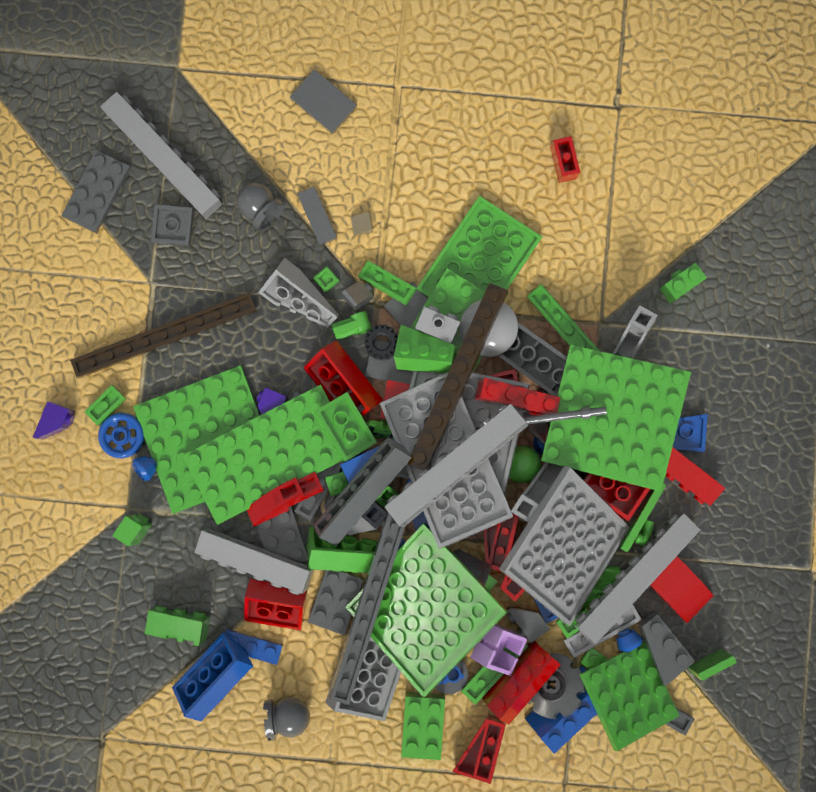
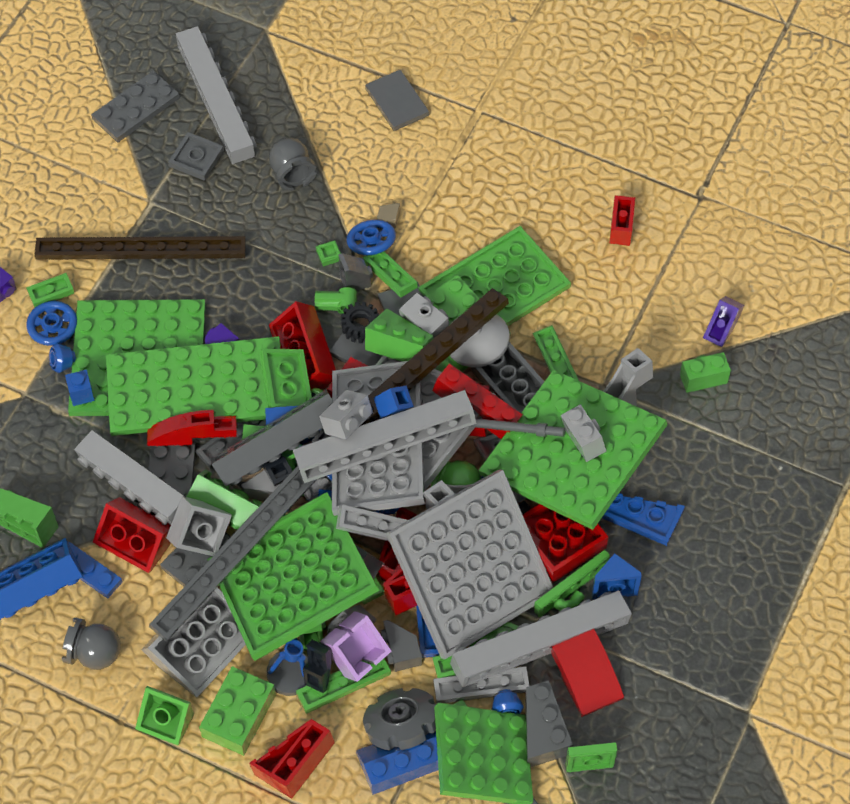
camera: 20 degrees right, 25 degrees down
(132, 529) = (21, 406): bright green brick -> none
(174, 495) = (79, 387): none -> blue brick
(293, 290) = (290, 249): light grey wedge -> none
(317, 216) = (345, 194): dark grey tile -> none
(328, 590) = (198, 526): none -> light grey slope
(350, 240) = (371, 237): none -> blue plate
(367, 750) = (164, 715): none -> bright green slope
(418, 461) = (346, 414): none -> light grey brick
(452, 433) = (393, 401): none -> blue brick
(474, 674) = (318, 668): none -> black slope
(482, 543) = (366, 522): none -> light grey plate
(513, 692) = (367, 698): red slope -> none
(627, 410) = (584, 433): none -> light grey brick
(676, 504) = (617, 576): none -> blue slope
(681, 226) = (723, 321): none -> dark purple slope
(693, 478) = (637, 551): red brick -> none

